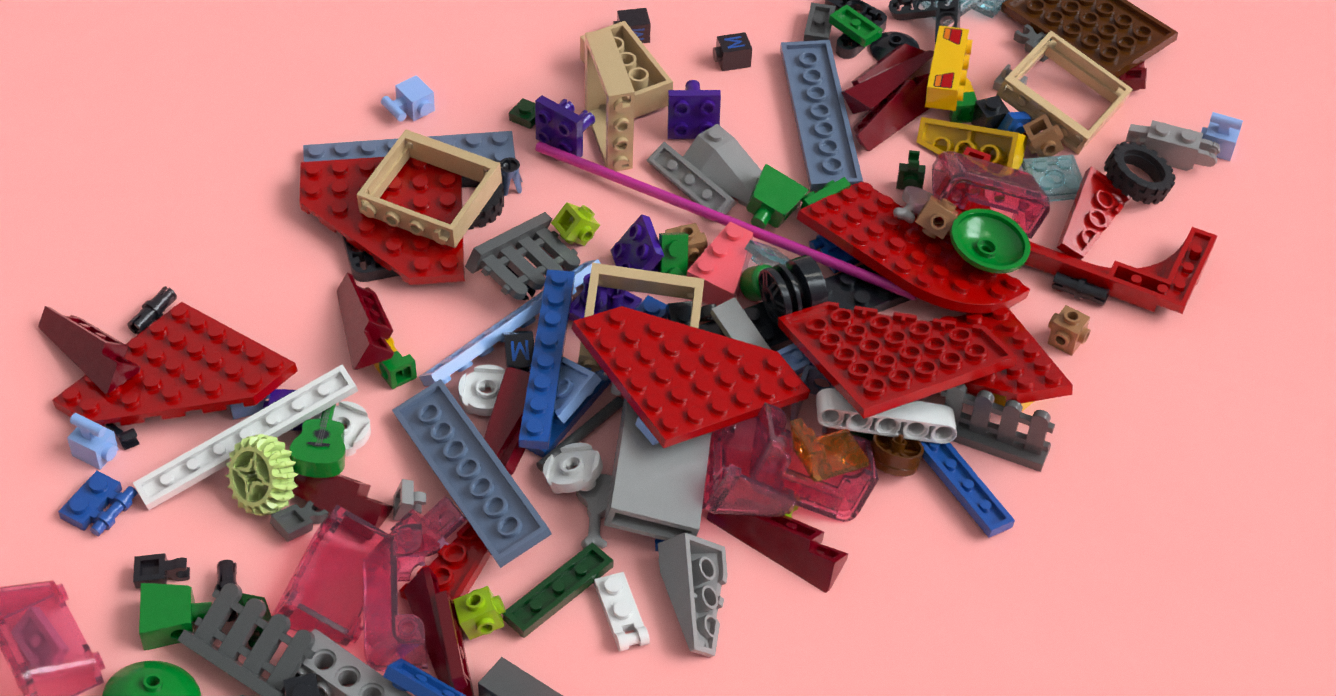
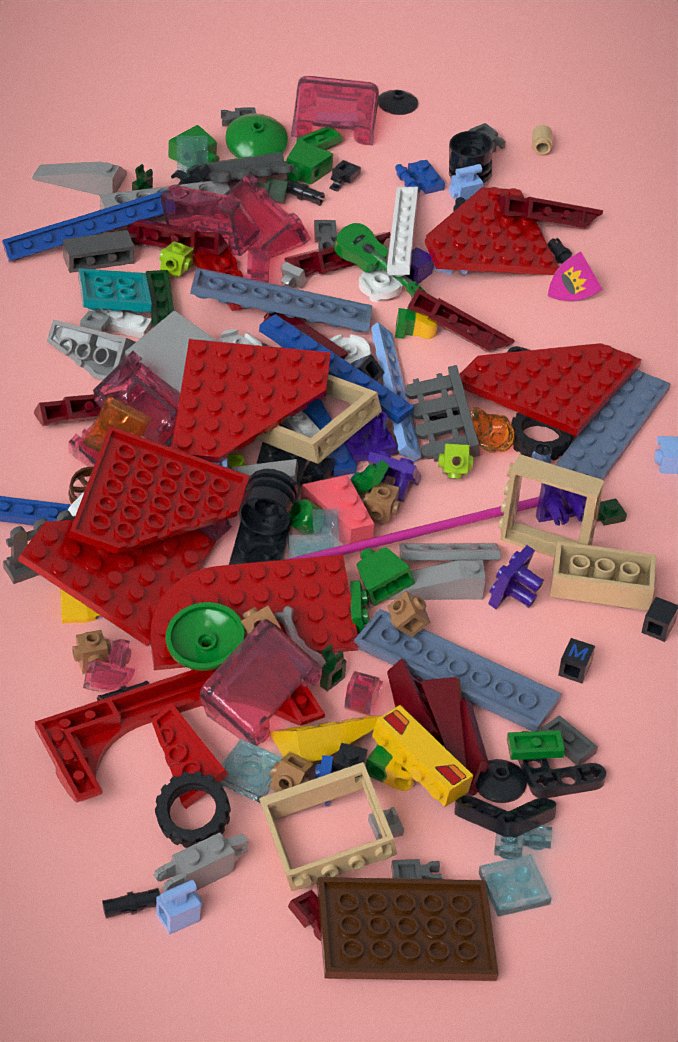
camera: 125 degrees right, 5 degrees down
(40, 454) = (470, 149): none -> black wheel
(107, 635) = (322, 138): none -> green plate
(202, 274) = (573, 280): none -> dark pink shield
(261, 474) = (374, 215): yellowish green gear -> none
(439, 155) = (588, 394): tan window -> none
(505, 216) = (492, 430): none -> clear orange hair
(590, 630) = (114, 290): none -> teal plate
(659, 613) = (95, 321): none -> light grey tile
(813, 144) = (409, 613): none -> medium nougat brick
(922, 136) = (362, 693): none -> clear pink brick
(1079, 297) = (112, 675): none -> clear pink brick
(1245, 168) = (130, 903): none -> black pin

